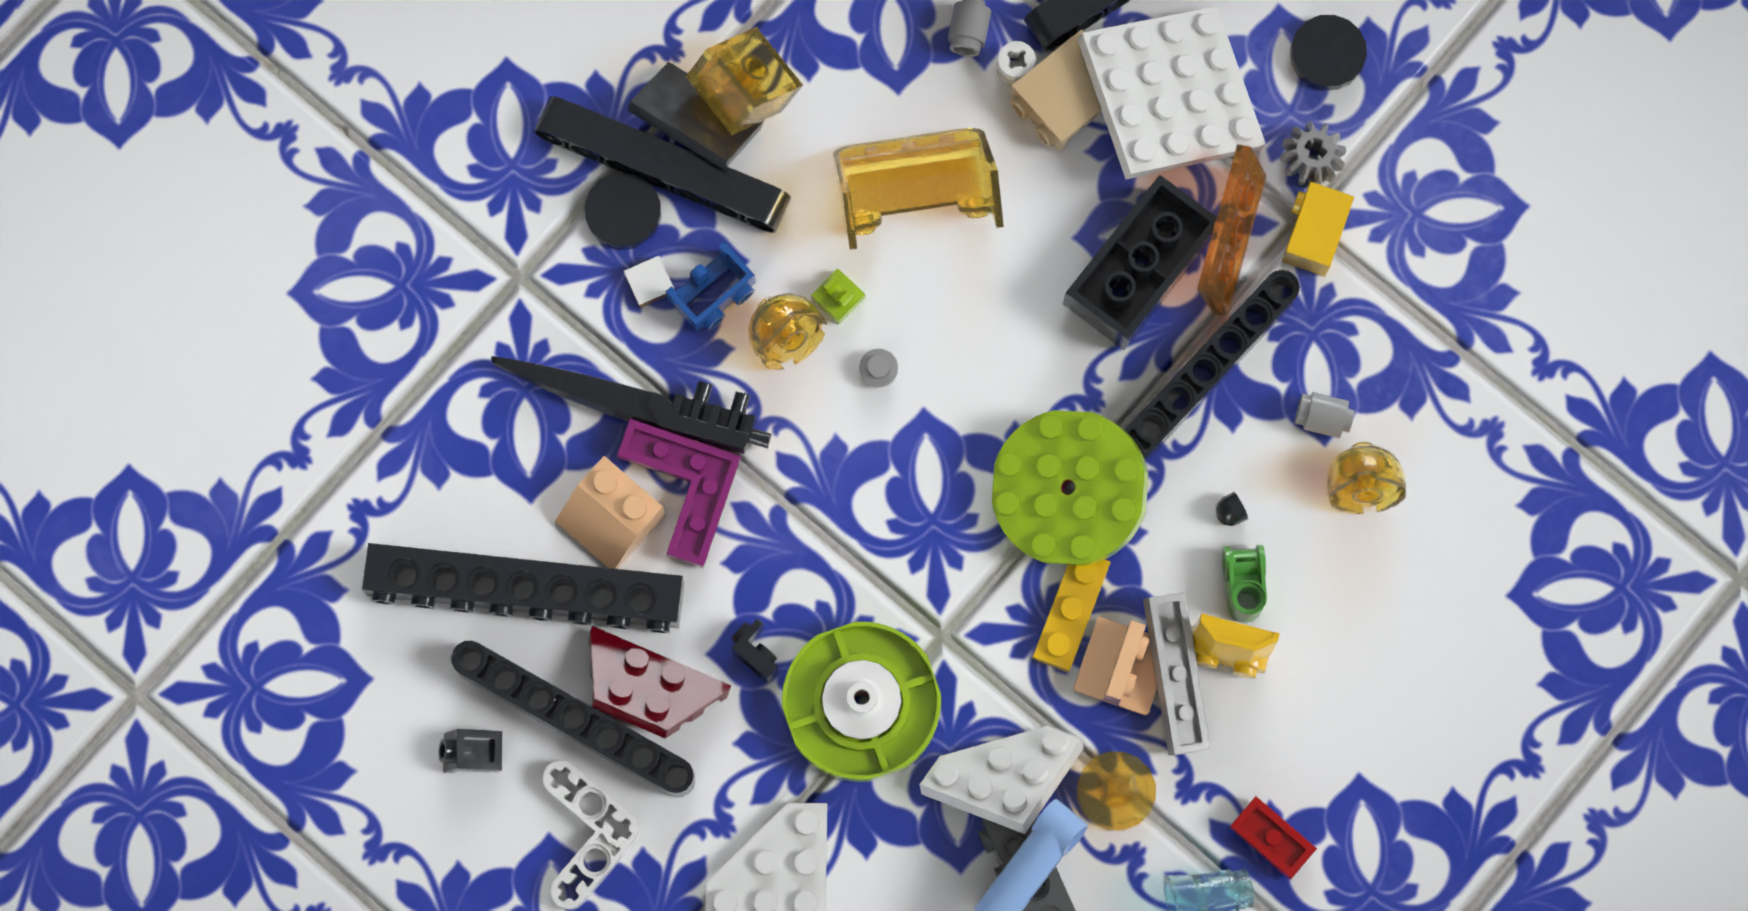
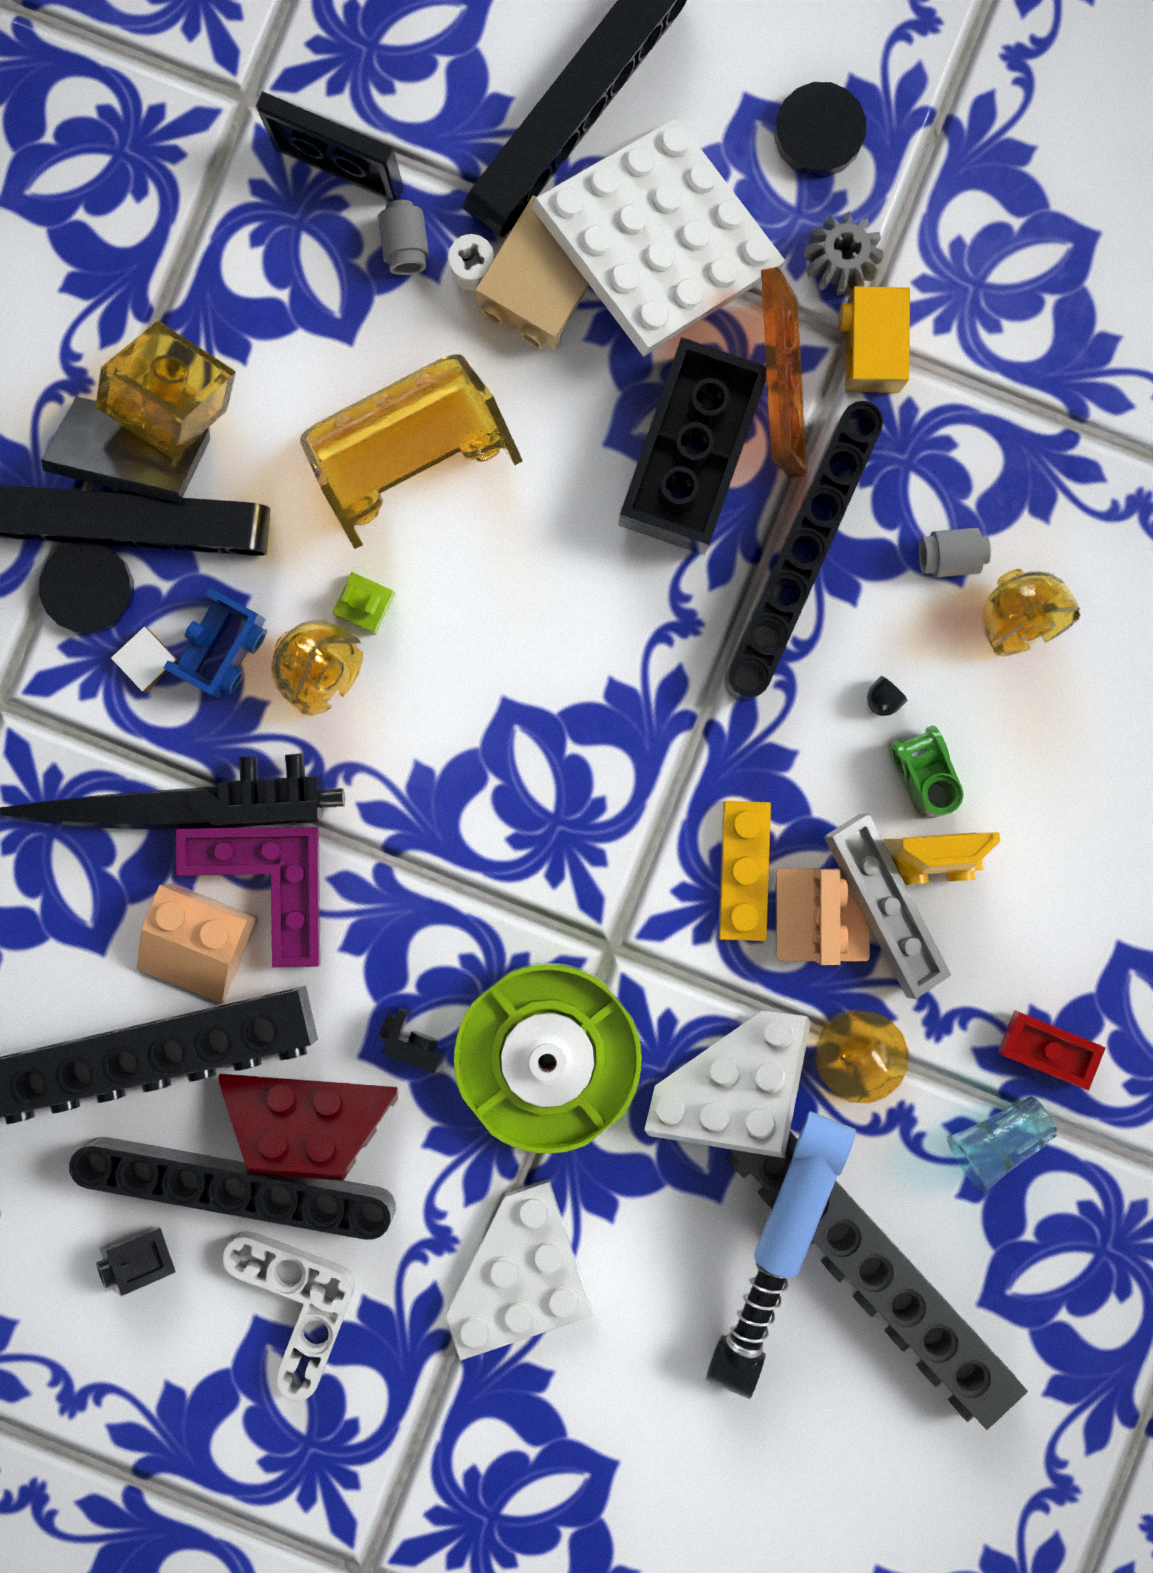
camera: 20 degrees left, 10 degrees up
(878, 368) = (437, 670): light grey plate -> none
(1035, 479) = (674, 773): lime piece -> none

